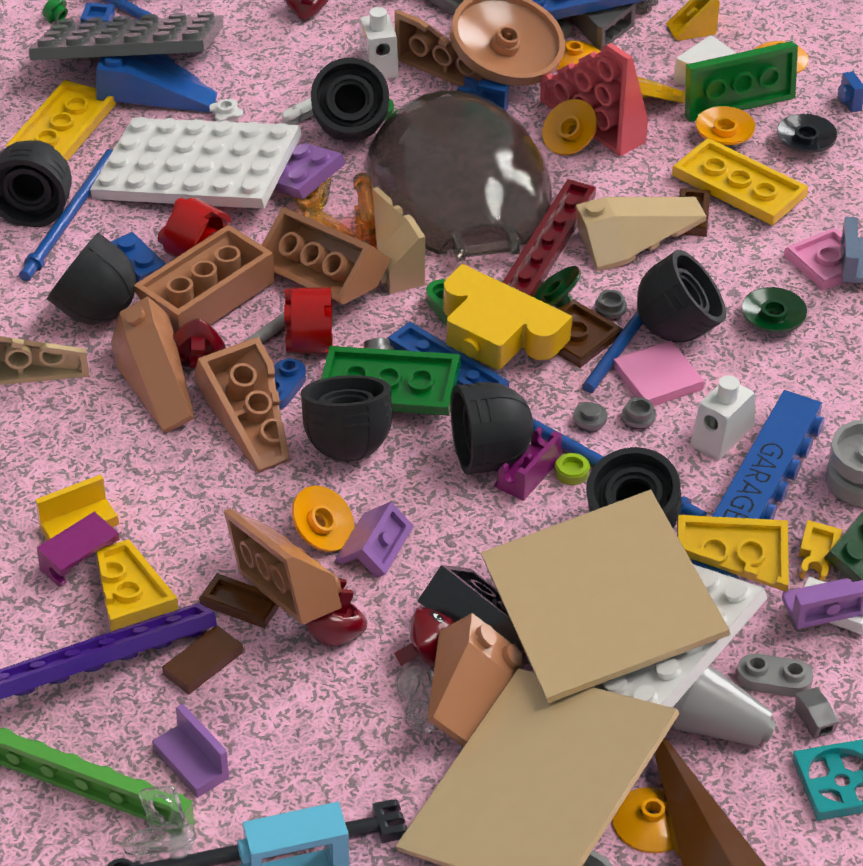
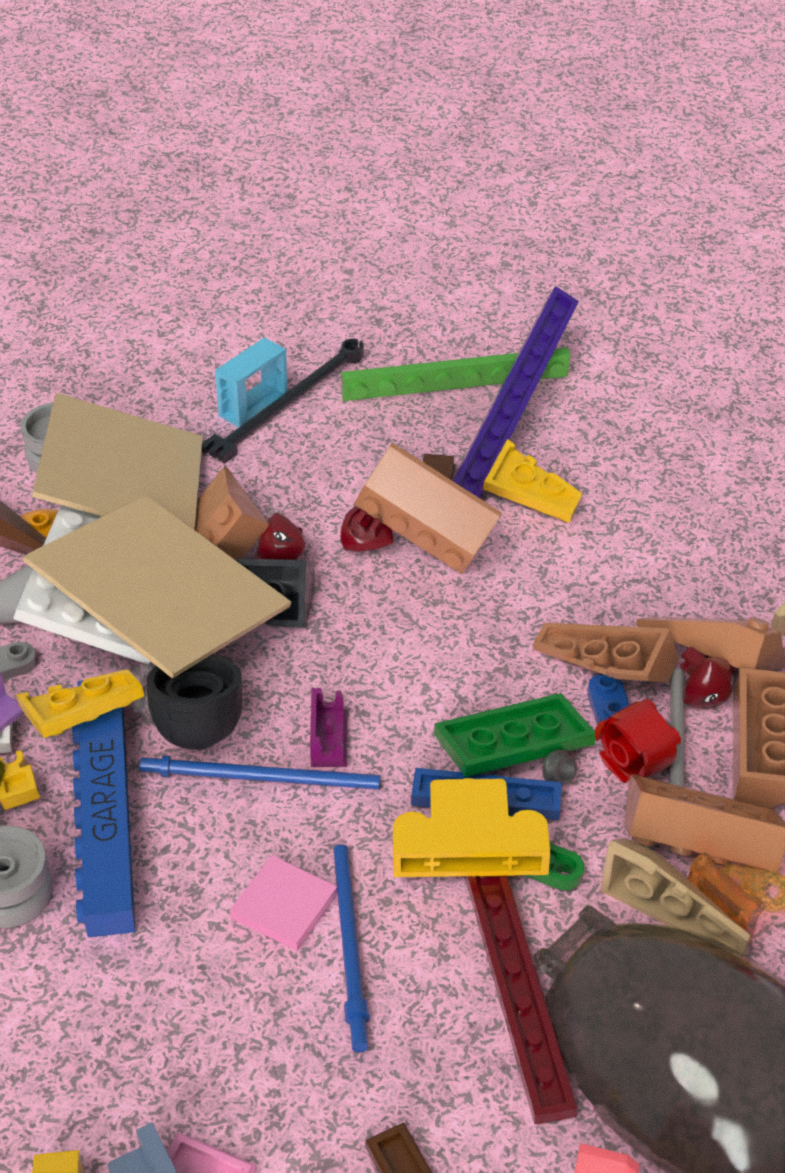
camera: 145 degrees right, 0 degrees up
(71, 504) = (628, 517): yellow panel -> none
(74, 545) = (595, 490): magenta hinge -> none
(170, 837) = (338, 360): clear bracket -> none
(193, 753) = (378, 421): medium lavender panel -> none
(322, 518) = (447, 594): light orange dish -> none
(347, 415) = (506, 653): black piece -> none
(377, 539) = (395, 606): medium lavender panel -> none
(489, 426) = (379, 707): black piece -> none
(558, 287) = (455, 925): dark green dish -> none
(572, 469) = (291, 754): lime tile -> none
(589, 334) = (401, 910): reddish brown tile -> none
(590, 416) = (313, 813): flat silver plate -> none
(610, 304) = (392, 959): flat silver plate -> none
(624, 226) = (443, 1080): tan wedge -> none
(639, 413) = (269, 840): flat silver plate -> none
(679, 299) = (301, 953): black piece -> none
(723, 418) = (179, 844): white torso -> none
(774, 309) = (208, 1027): dark green dish -> none

